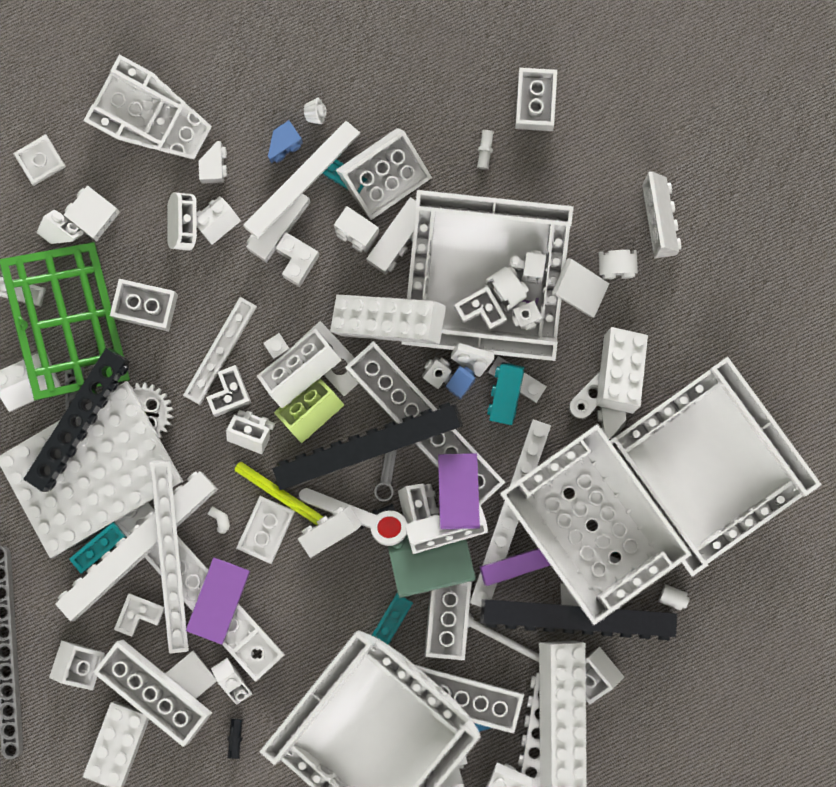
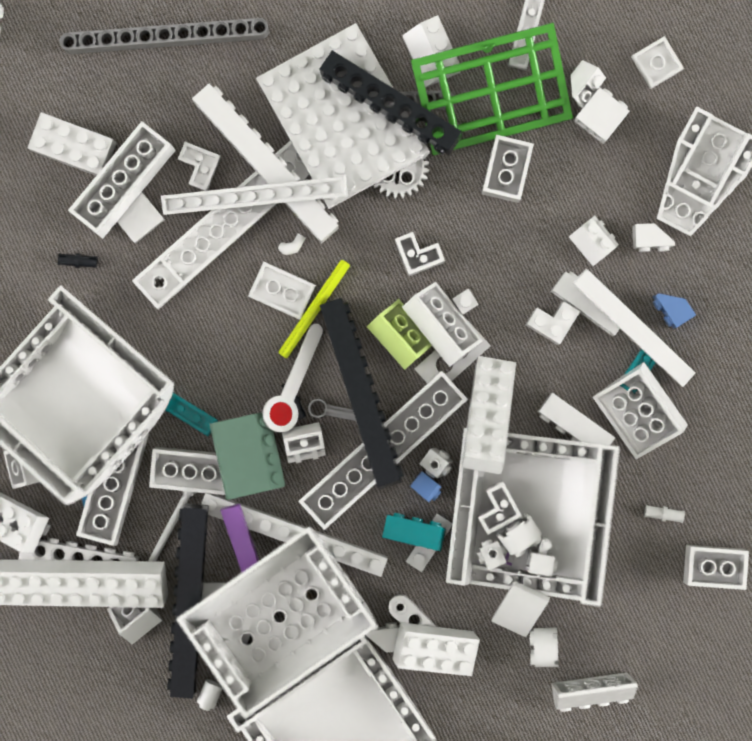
camera: 85 degrees right, 5 degrees up
(76, 665) = (150, 104): white slope -> none
(97, 547) = (265, 124): teal plate -> none
(181, 221) = (592, 206): white brick -> none
(218, 600) = (211, 243): medium lavender tile -> none
(220, 350) = (461, 245): white tile -> none
(231, 681) = (133, 256): white slope -> none
(249, 431) = (376, 275): white brick -> none
(315, 111) = (705, 341): white piece -> none
(329, 530) = (278, 354): white brick -> none
(356, 230) = (581, 383): white brick -> none
(428, 535) = (278, 471): white brick -> none
(458, 491) = (314, 484): medium lavender tile -> none
(472, 357) = (449, 499): white wing -> none

